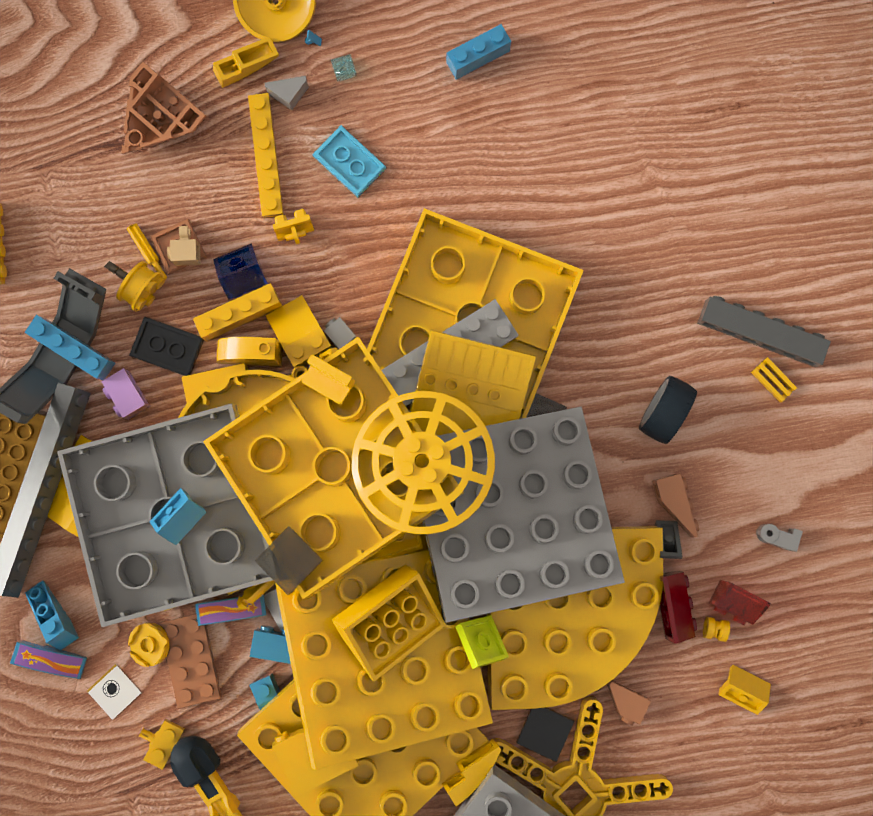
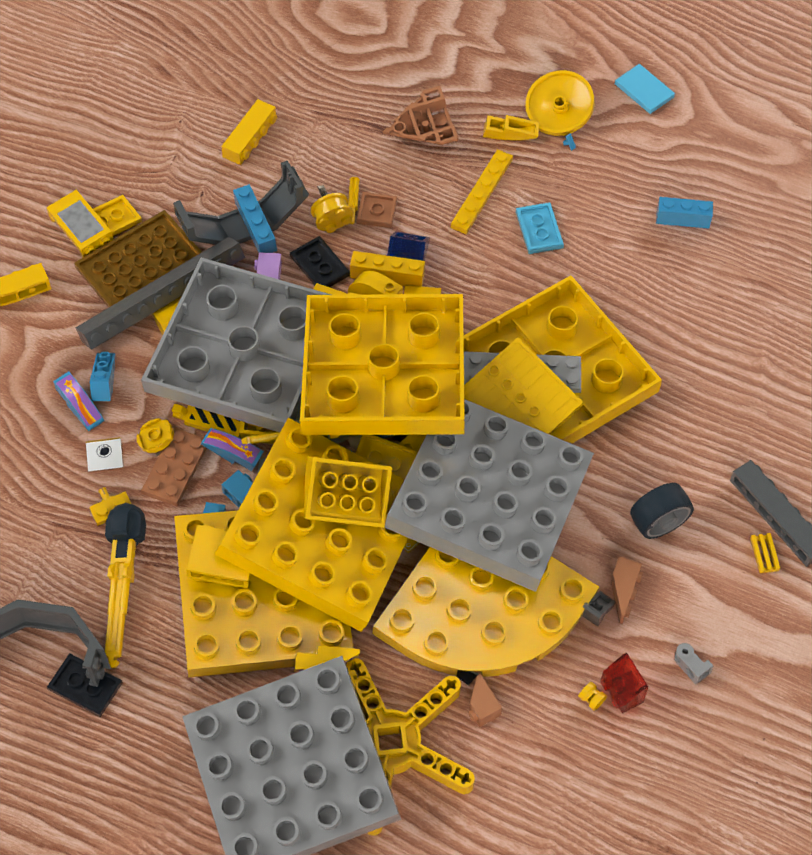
camera: 35 degrees right, 25 degrees down
(177, 517) = (250, 342): dark azure panel -> none
(184, 251) = (380, 210): tan brick -> none
(288, 90) = (528, 161): light grey slope -> none
(289, 560) = (309, 391): clear smoke tile -> none
(293, 228) = (467, 242): yellow hips -> none
(328, 380) = (422, 303): yellow panel -> none
(343, 67) = (578, 171): clear light blue tile -> none
(434, 473) = (447, 392): yellow dish -> none
(481, 641) = (402, 561): neon yellow plate -> none
(545, 732) = (401, 684): black tile -> none
(676, 608) = (571, 655): dark red slope -> none
(746, 690) = (584, 757): yellow panel -> none

